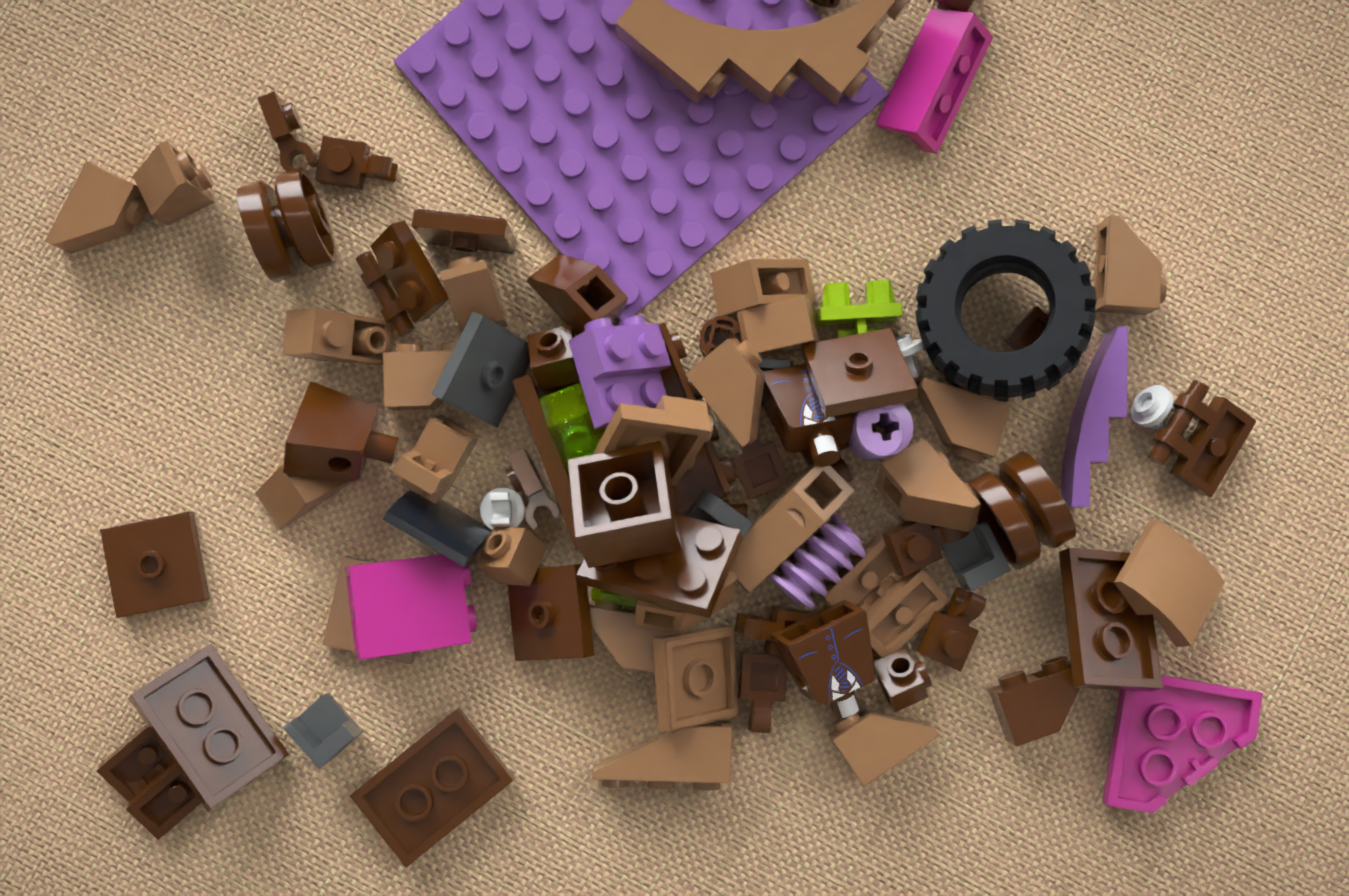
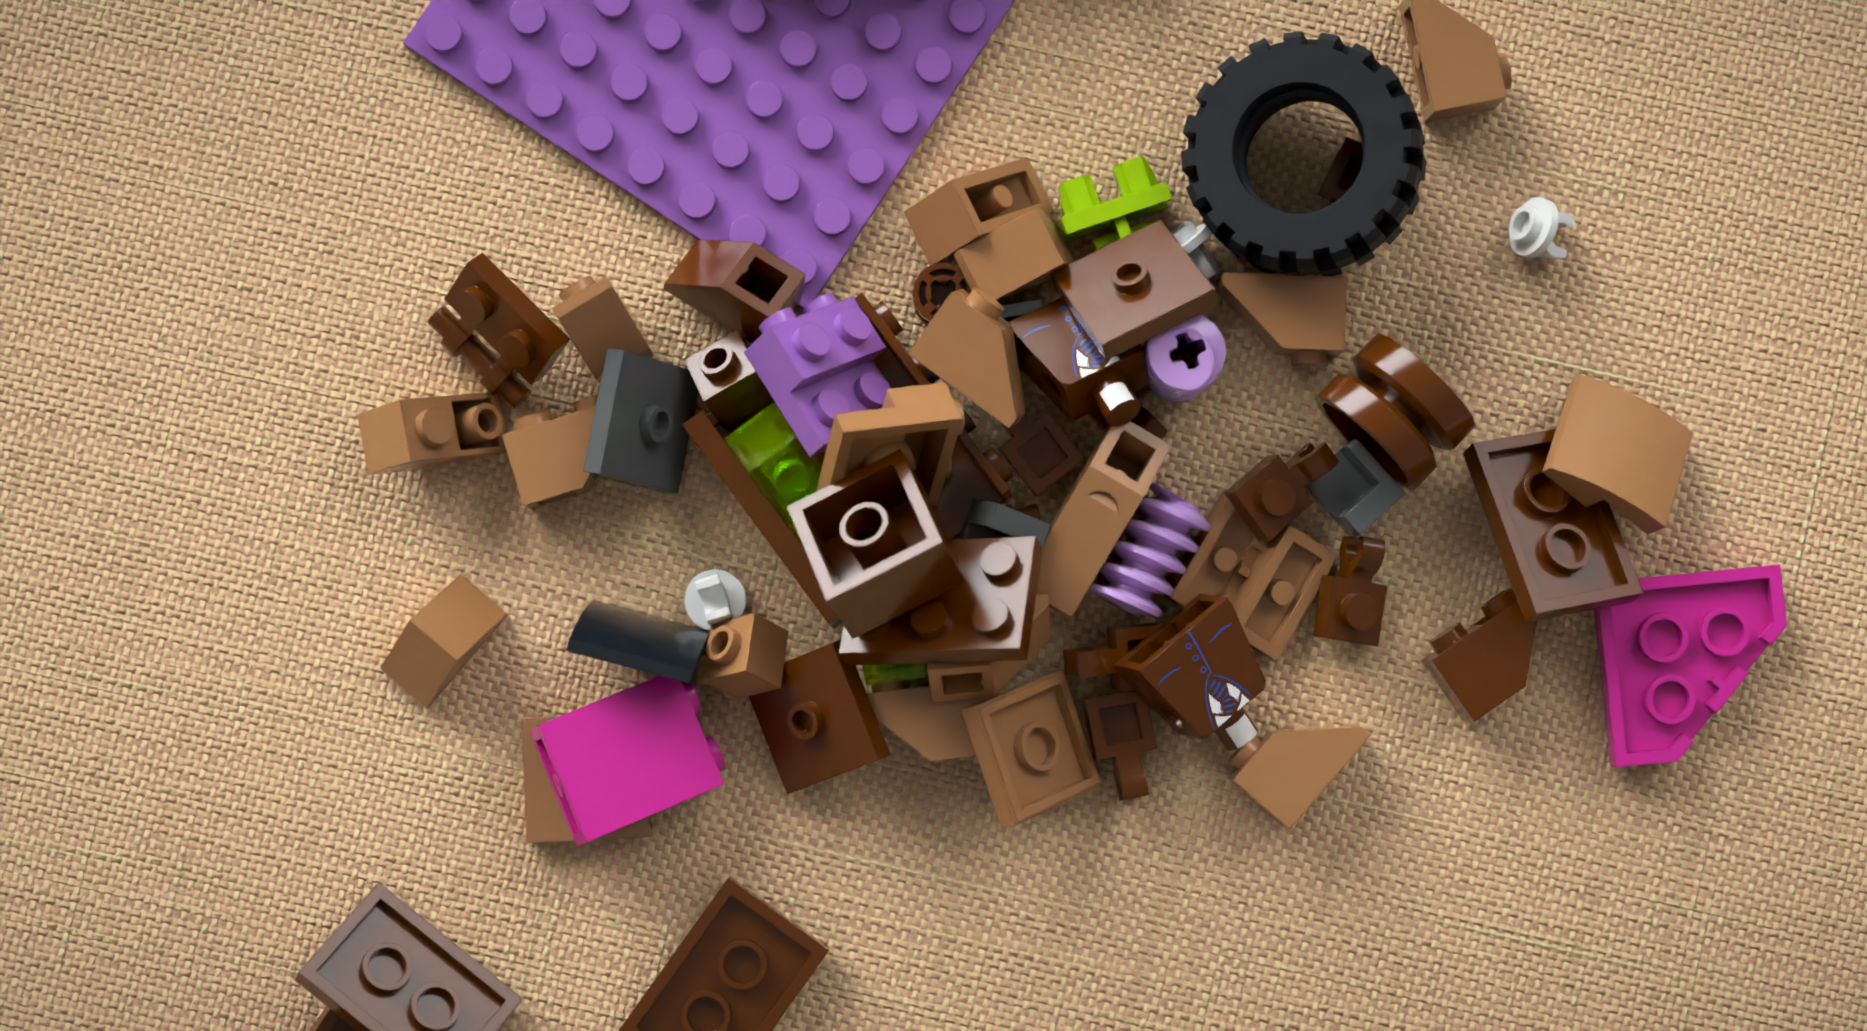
camera: 15 degrees left, 0 degrees up
(97, 211) = (68, 350): medium nougat slope -> none
(154, 564) = (273, 799): reddish brown plate -> none
(173, 184) = (160, 288): medium nougat slope -> none
(283, 123) = (281, 167): reddish brown plate -> none
(286, 225) = (322, 305): reddish brown wheel -> none
(323, 730) = (560, 954): dark grey panel -> none
(335, 436) = (470, 562): reddish brown torso -> none
(348, 163) = (380, 196): reddish brown plate -> none
(435, 458) = (609, 555): medium nougat brick -> none
(464, 231) = (565, 246): reddish brown plate -> none
(525, 477) = (733, 548): reddish brown plate -> none
(684, 755) = (1038, 855): medium nougat slope -> none
(902, 679) = (1303, 677): reddish brown plate -> none
(926, 489) = (1266, 418): medium nougat slope -> none
(1100, 400) = (1463, 240): medium lavender slope -> none
(1211, 446) = (1626, 257): reddish brown plate -> none

